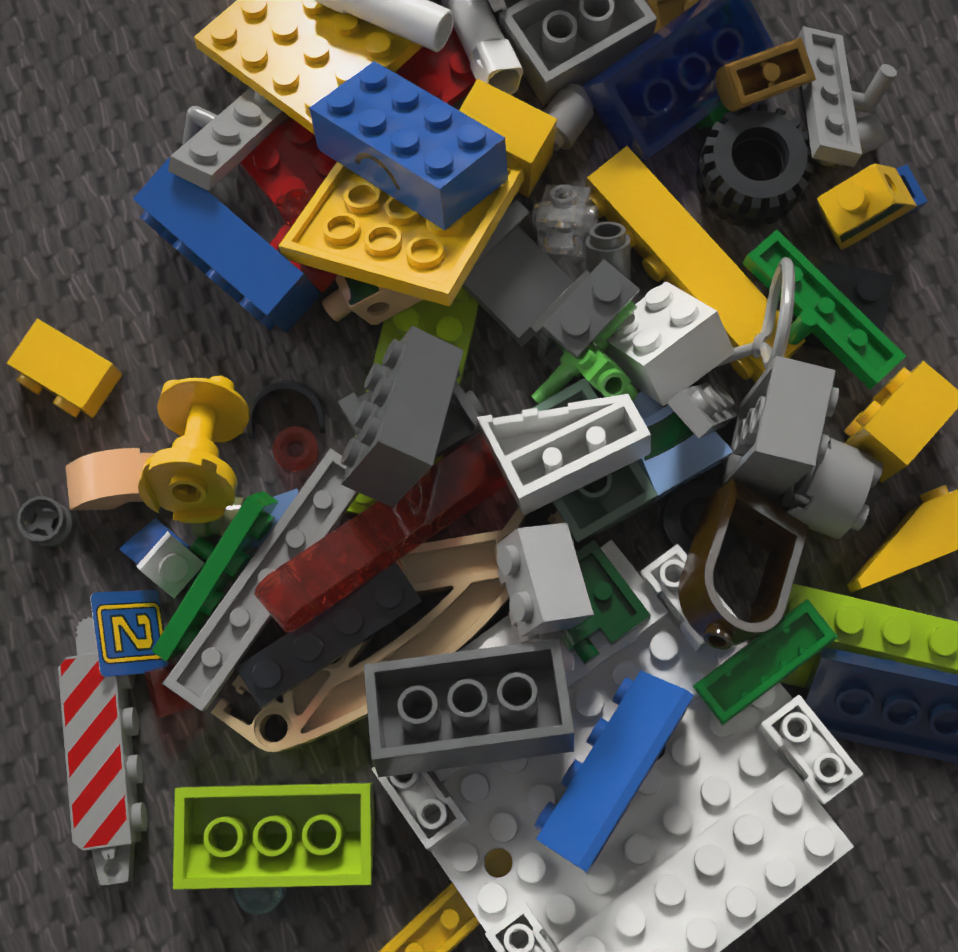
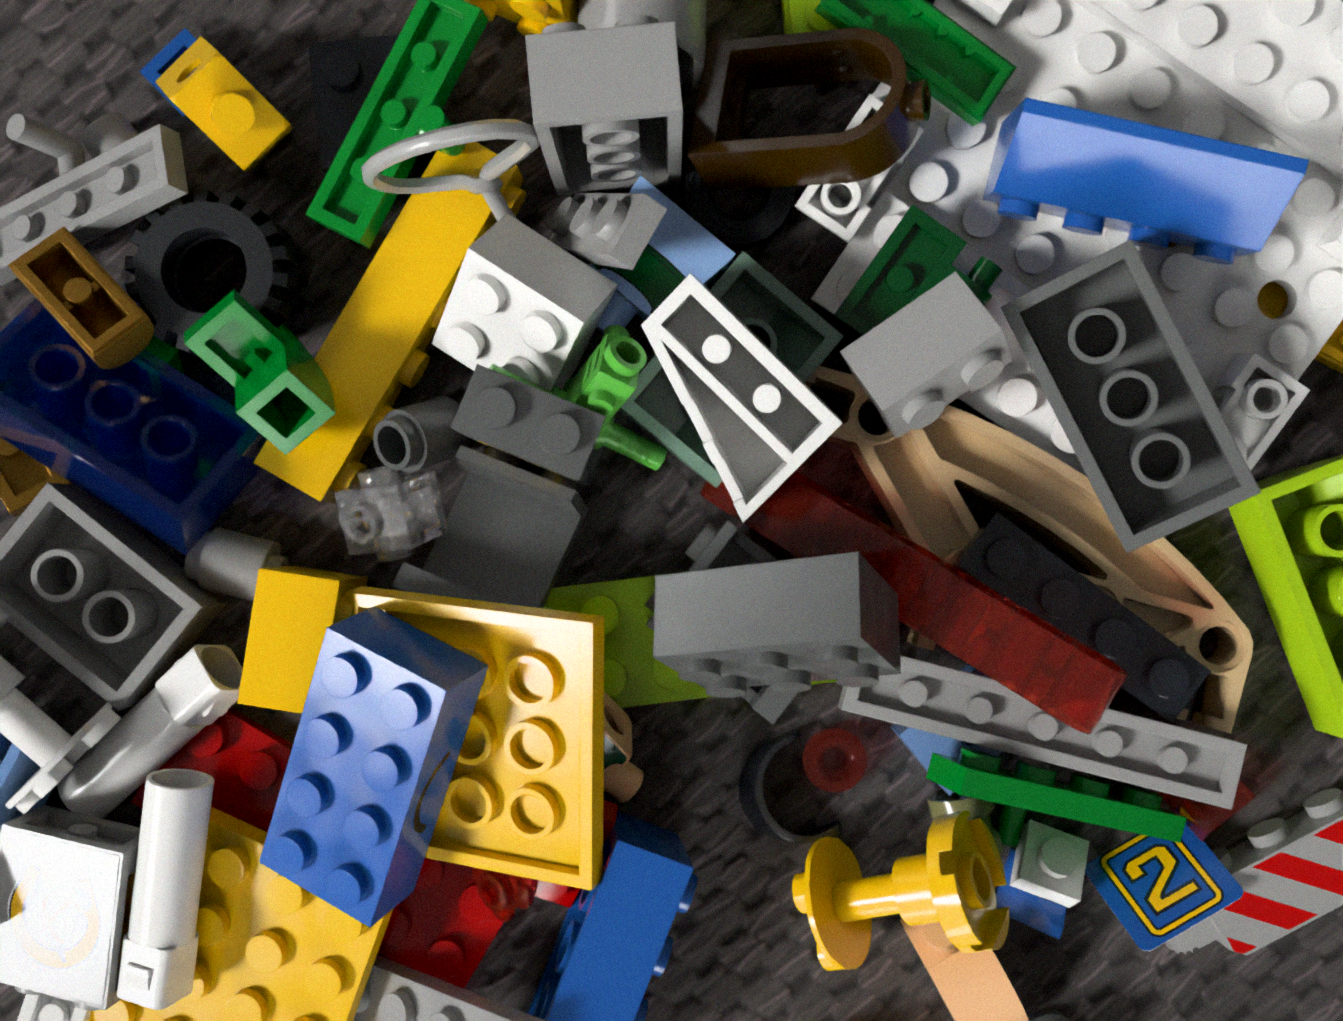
camera: 105 degrees left, 10 degrees up
(680, 173) = (273, 374): none -> green brick

